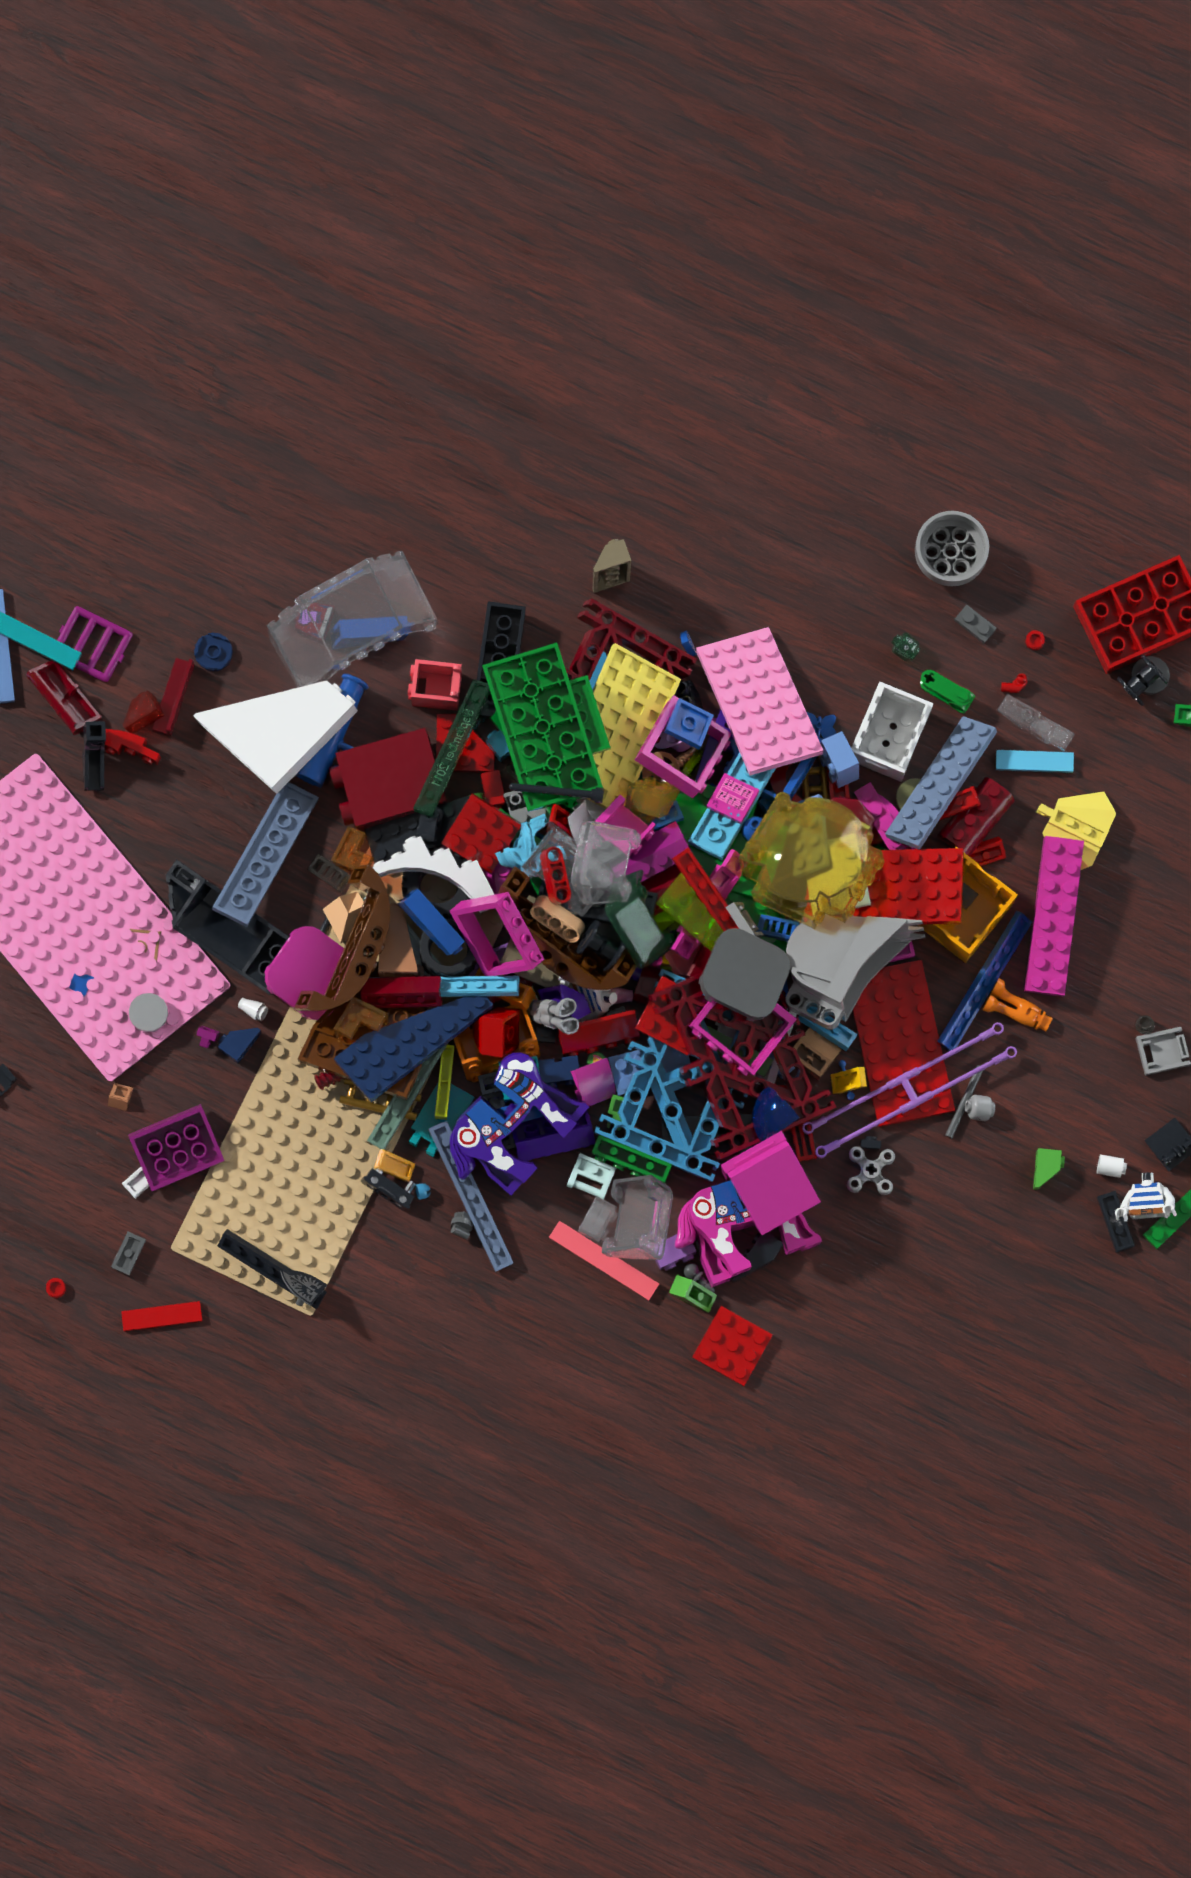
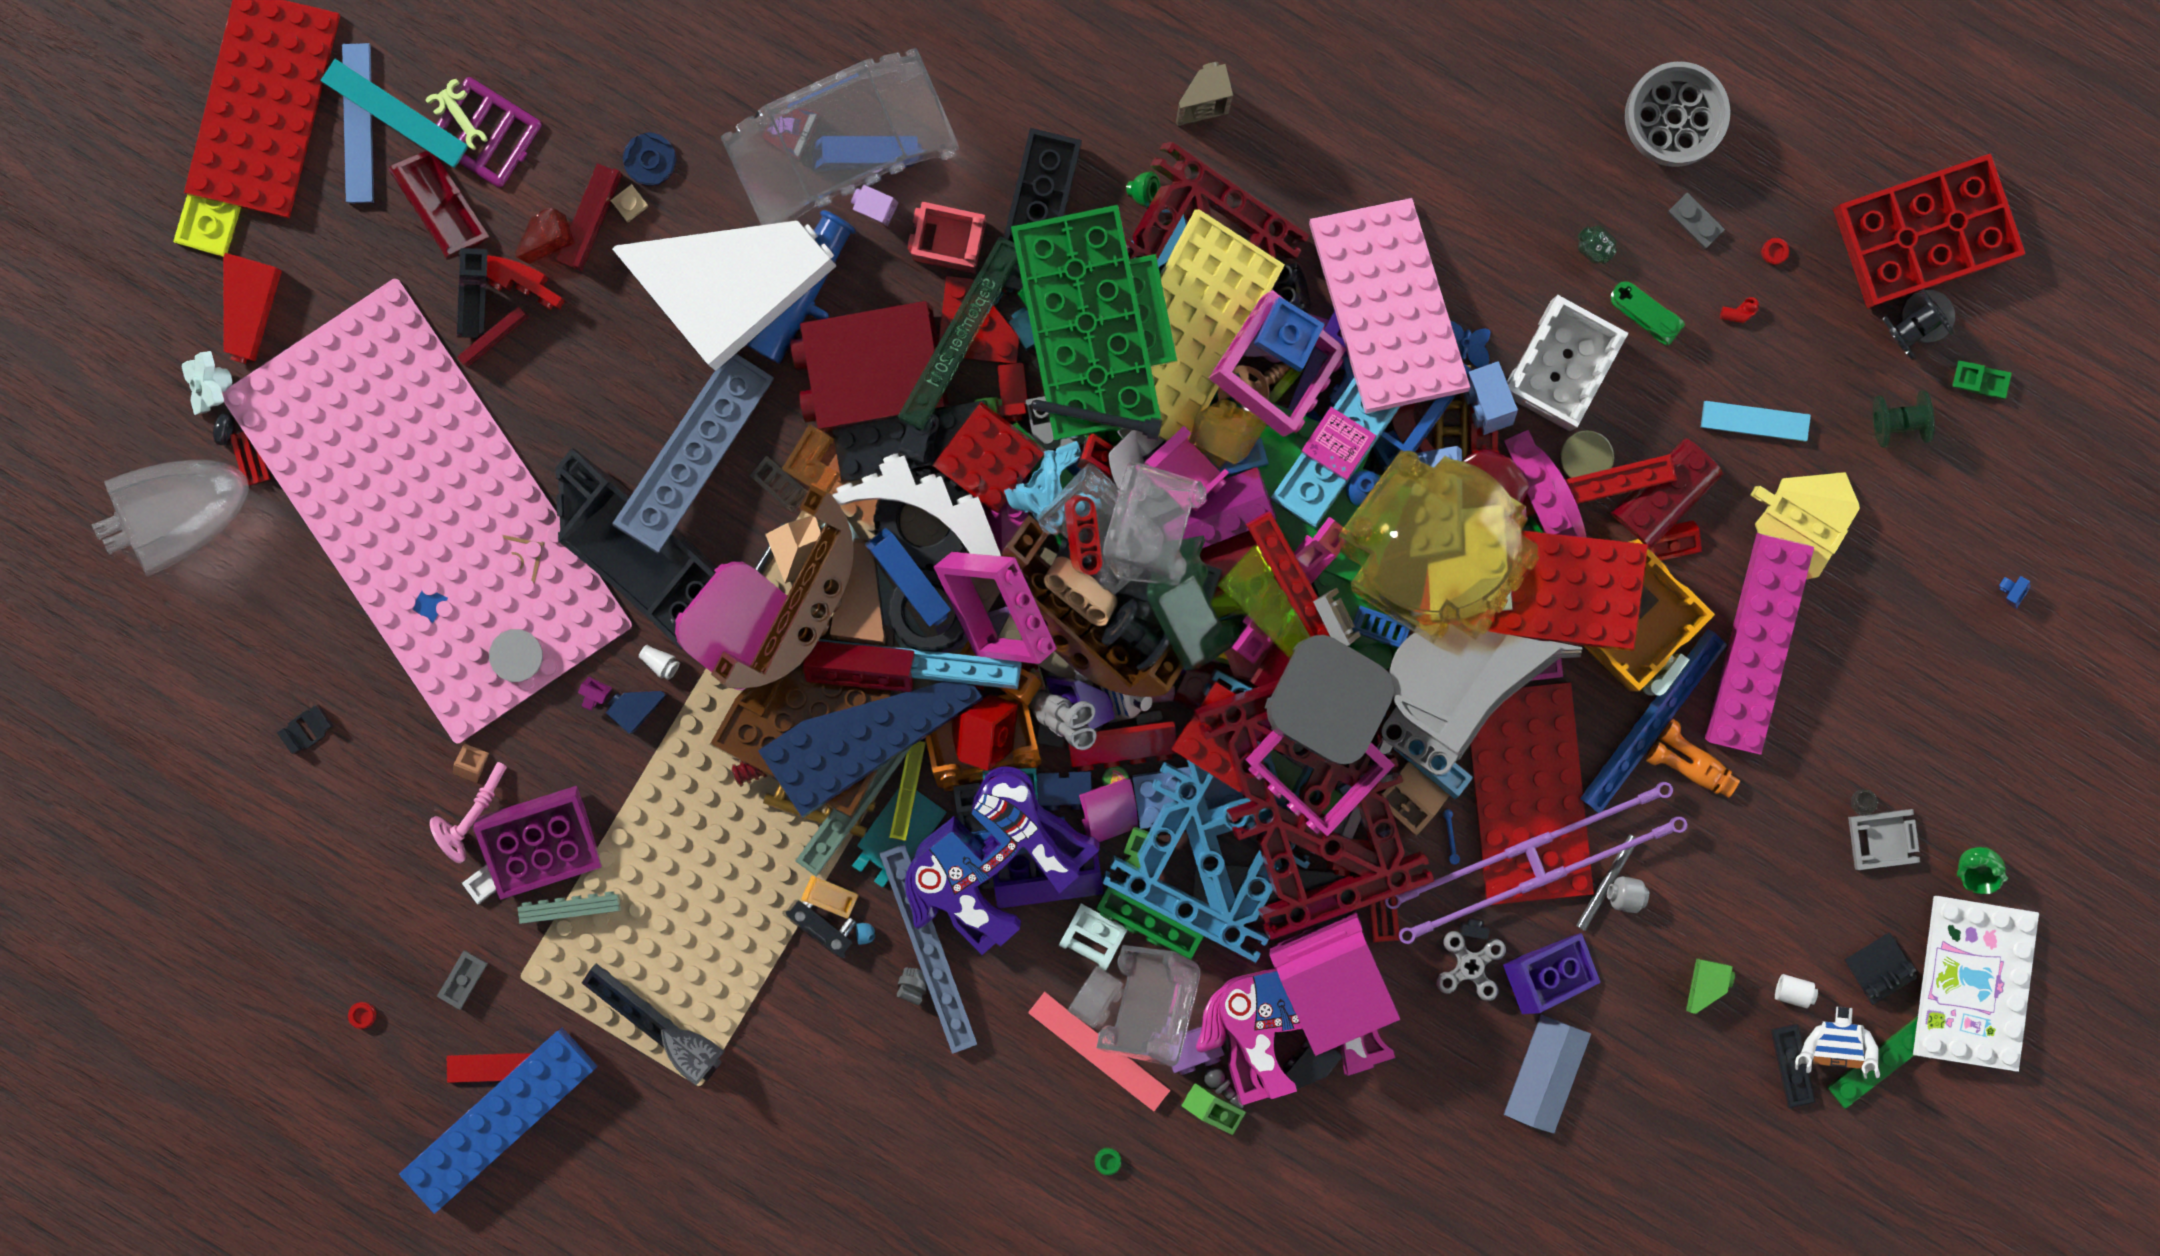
camera: 10 degrees right, 10 degrees up
(64, 622) = (447, 99): none -> yellowish green bar
(112, 786) = (492, 336): none -> dark red tile
(113, 1147) = (453, 835): none -> bright pink dish
(164, 1352) = (498, 1120): none -> blue brick
(199, 1193) = (570, 908): none -> sand green piece
(201, 684) = (629, 203): none -> tan plate
(359, 1013) = (794, 693): clear orange panel -> none
(381, 665) = (874, 204): none -> lavender slope
(573, 637) = (1144, 188): none -> green brick
(618, 1341) = (1108, 1161): none -> green tile
(687, 643) = (1299, 211): blue tile -> none
(732, 1346) = (1259, 1183): red plate -> none
(771, 1114) = (1346, 890): clear blue brick -> none
(848, 1080) = (1454, 841): yellow tile -> none
(930, 1171) = (1551, 974): none -> dark purple slope
(936, 1244) = (1547, 1074): none -> sand blue slope
(941, 782) = (1625, 443): sand blue plate -> none
(990, 941) = (1666, 675): none -> light aqua plate
(1034, 723) = (1762, 369): clear slope -> none
(1140, 748) = (1903, 419): none -> clear green hose

